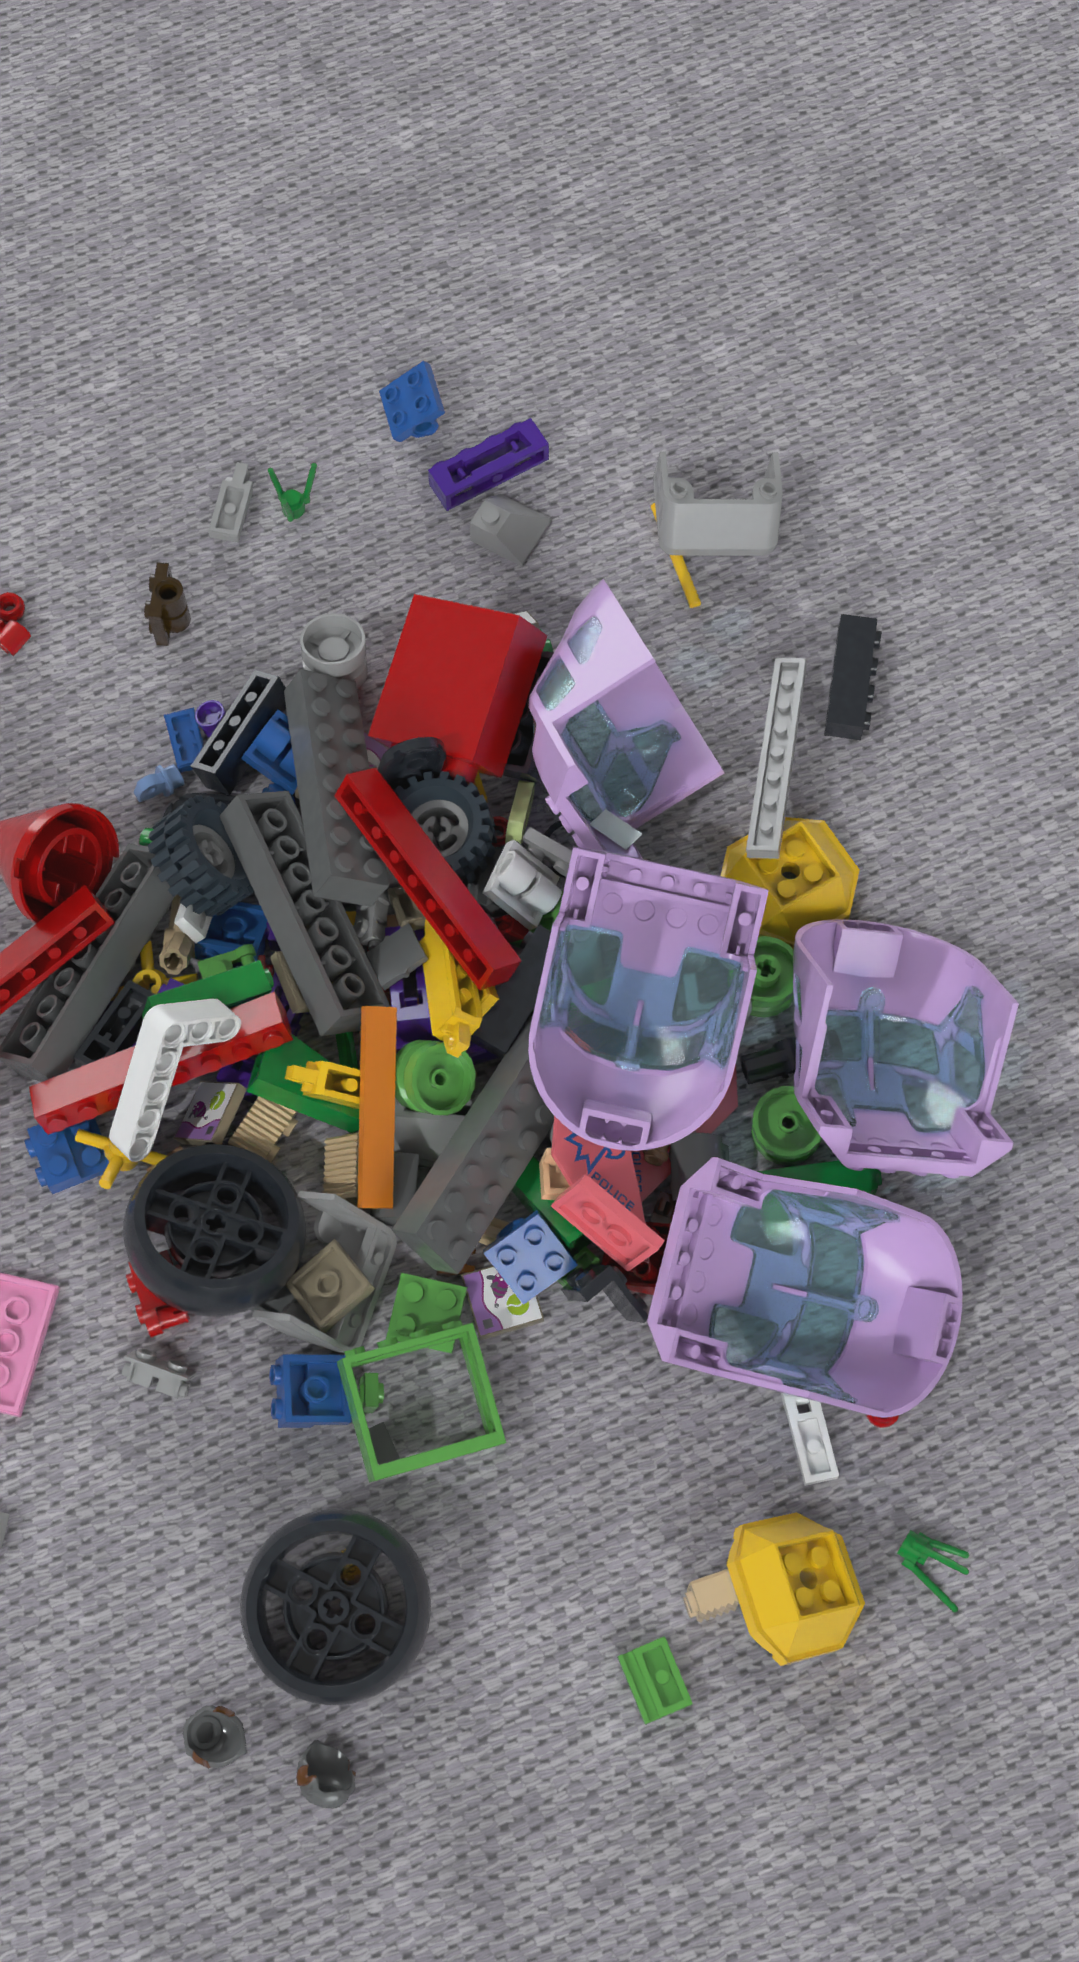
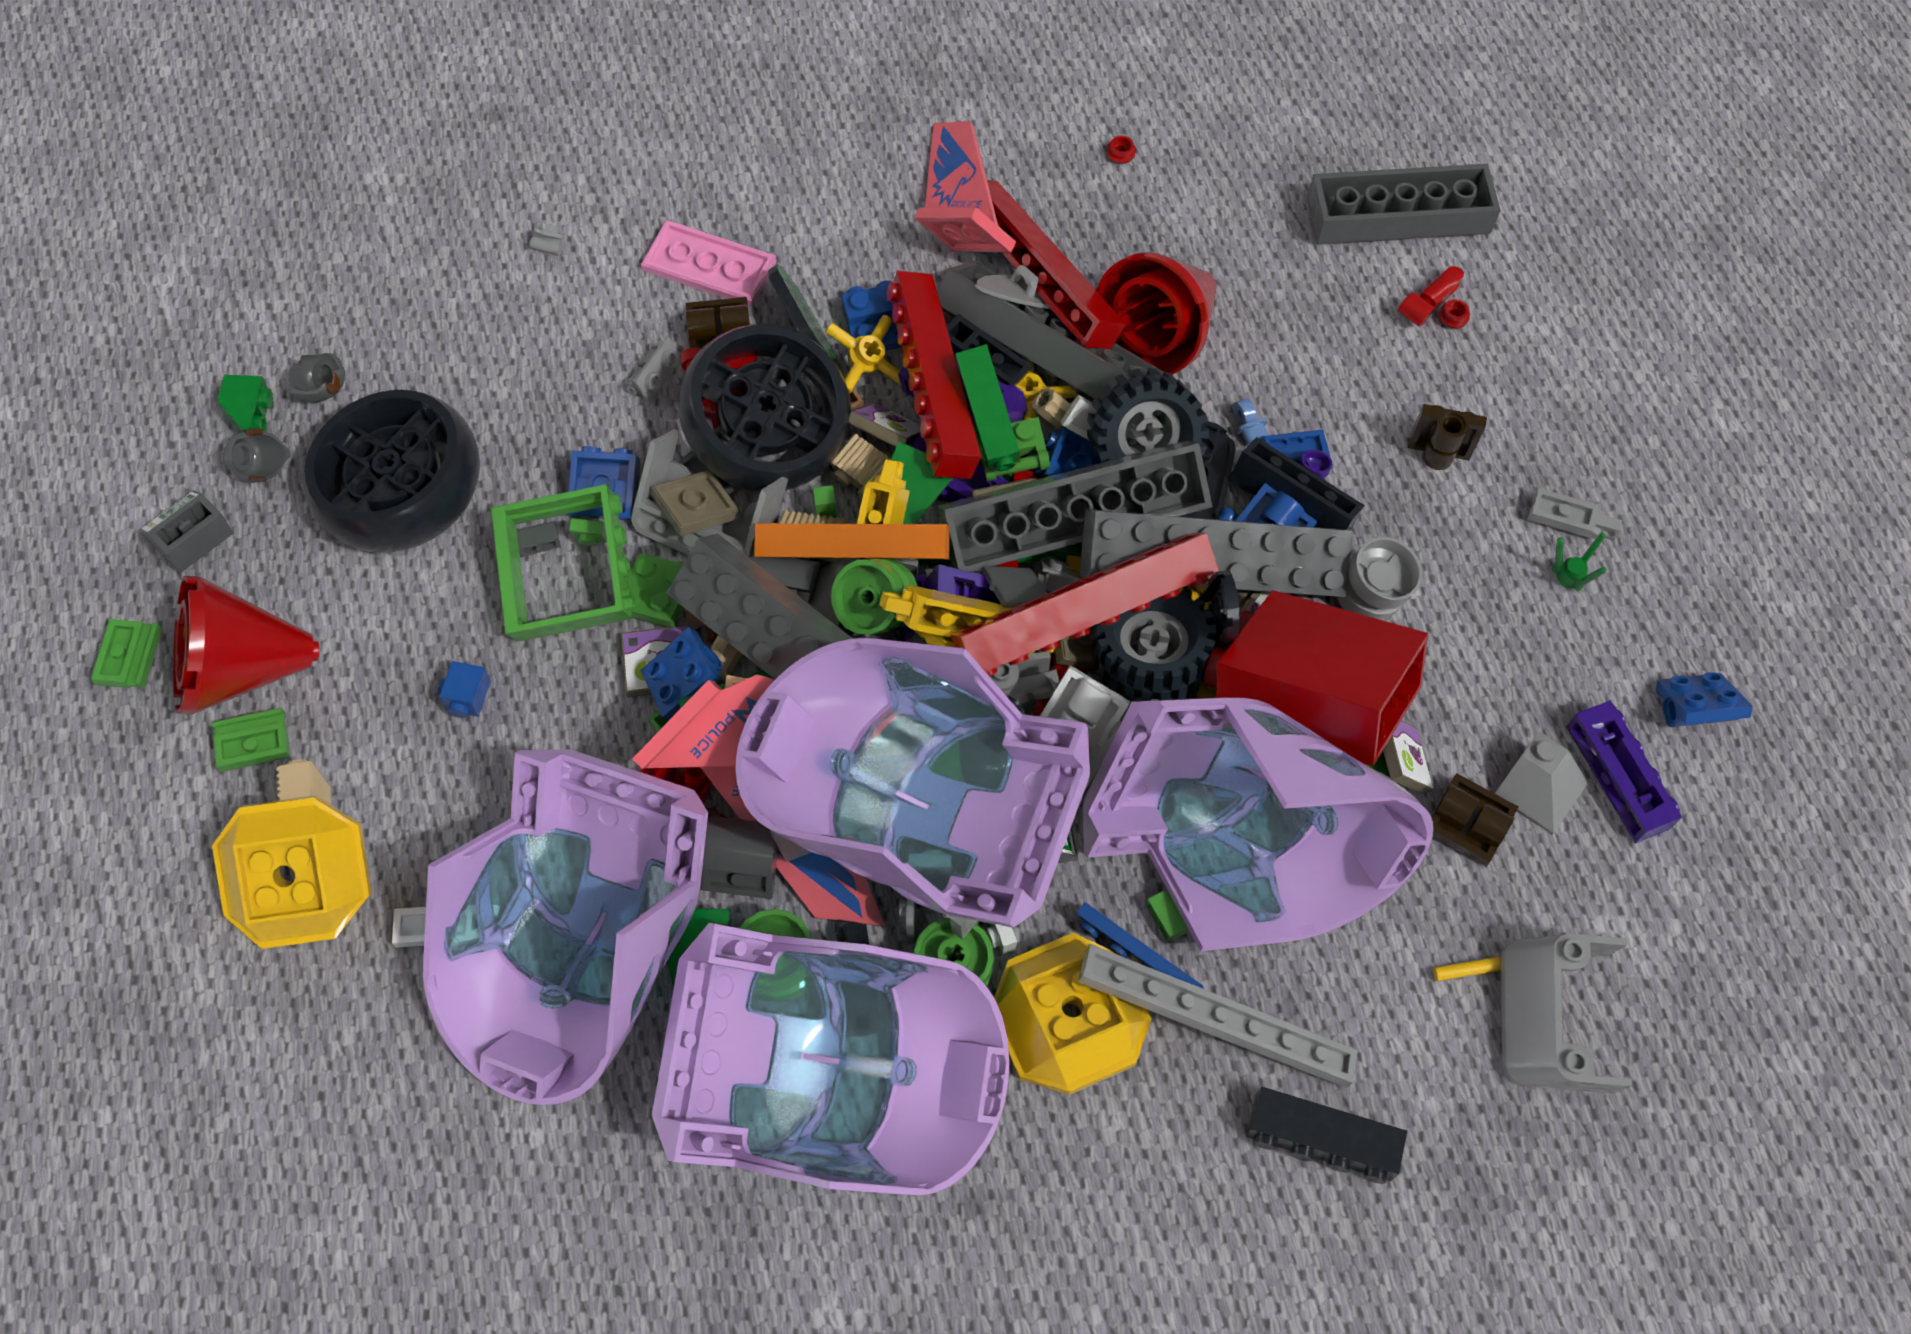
camera: 95 degrees right, 5 degrees down
(38, 1005) = (1014, 287): none -> light grey shield
(80, 1222) = (798, 308): none -> black tile
(97, 1311) = (713, 318): none -> dark brown plate
(154, 1065) = (942, 353): white beam -> none
(258, 1814) = (245, 401): none -> green slope
(310, 1162) = (824, 501): none -> bright green piece
(423, 1831) = (187, 530): none -> dark grey slope
(553, 578) = (1472, 819): none -> dark brown plate
(568, 1477) = (464, 689): none -> blue brick
(574, 1726) = (230, 646): none -> red cone
(580, 1846) = (126, 654): none -> bright green plate
(587, 1283) = (640, 727): black bracket -> none
(615, 829) = (1140, 822): white sticker -> none
(684, 813) = (1166, 916): none -> bright green piece
(730, 820) = (1126, 944): none -> blue plate
(920, 1547) = (295, 1009): green plant -> none

